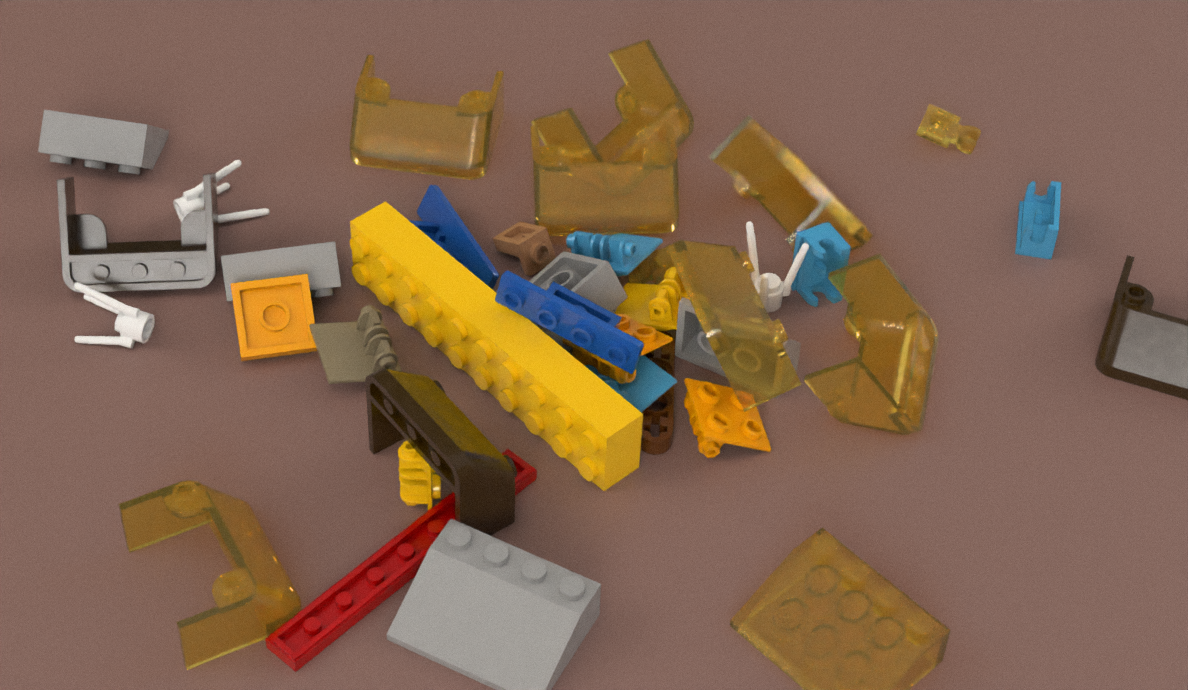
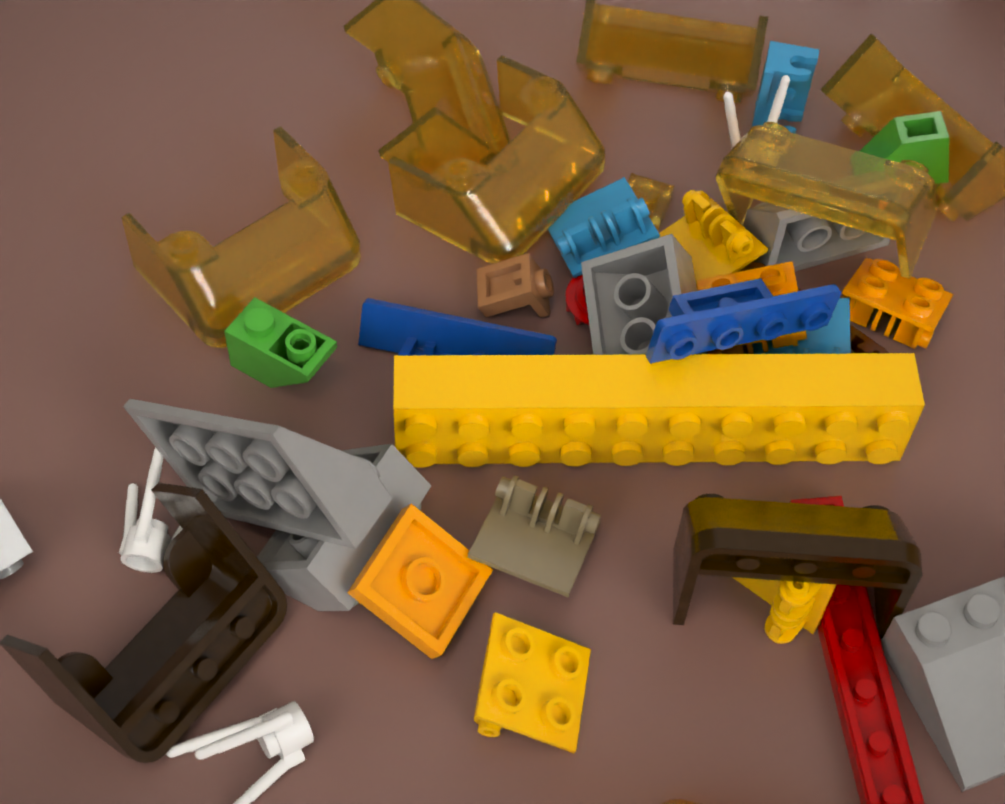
camera: 50 degrees left, 10 degrees up
(260, 403) = (531, 684): none -> yellow hinge
(263, 209) = (267, 473): none -> light grey slope
(365, 168) = (275, 346): none -> bright green slope
(842, 345) = (917, 139): none -> bright green slope

